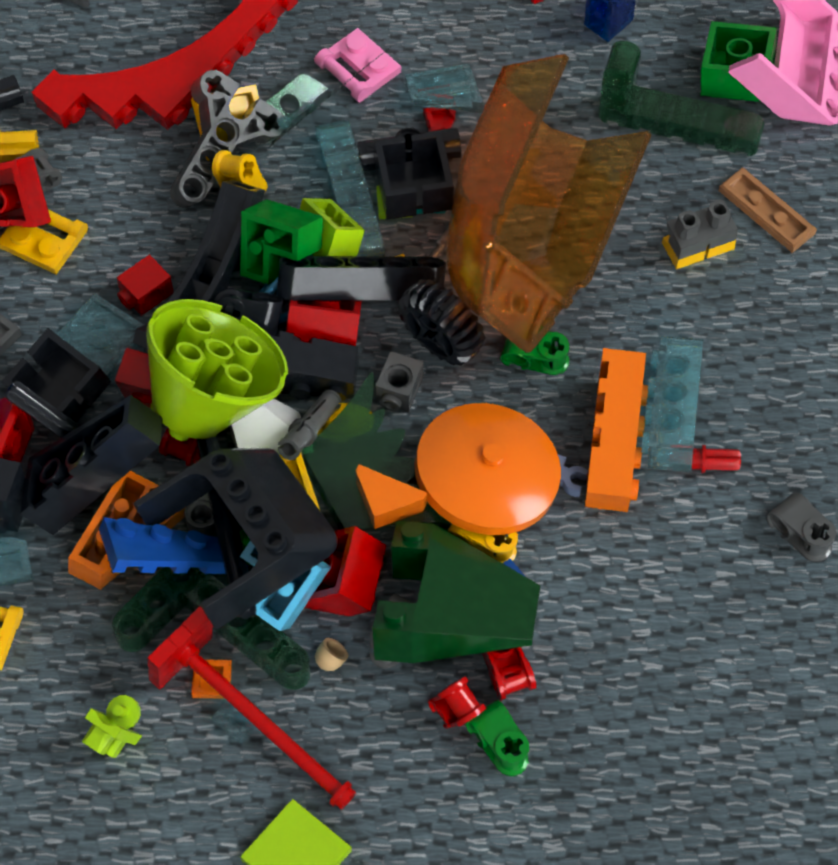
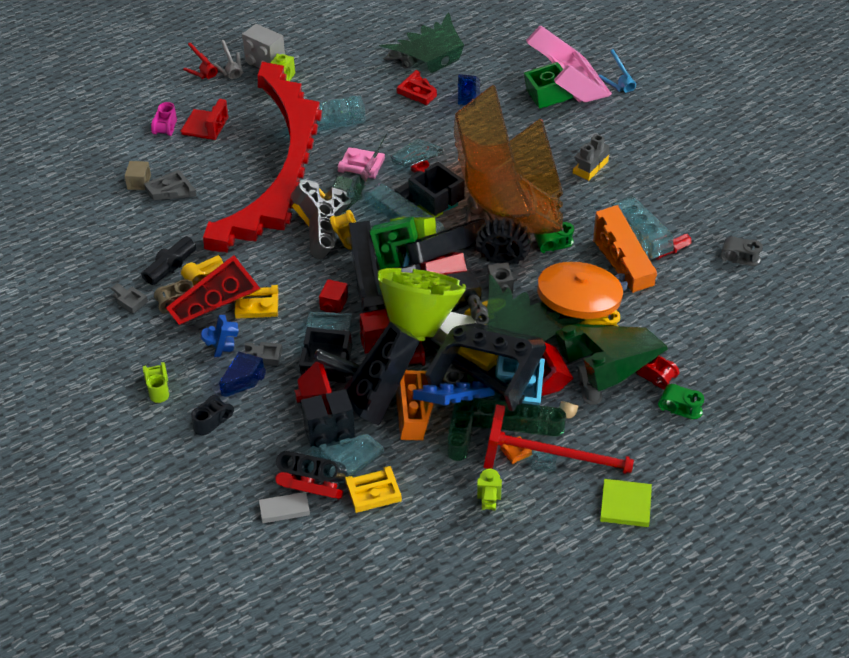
camera: 30 degrees left, 15 degrees down
(388, 498) = (543, 320): orange slope -> none
(456, 704) = (651, 394): red piece -> none
(670, 113) = (553, 115): clear green beam -> none
(767, 210) = (613, 139): medium nougat tile -> none

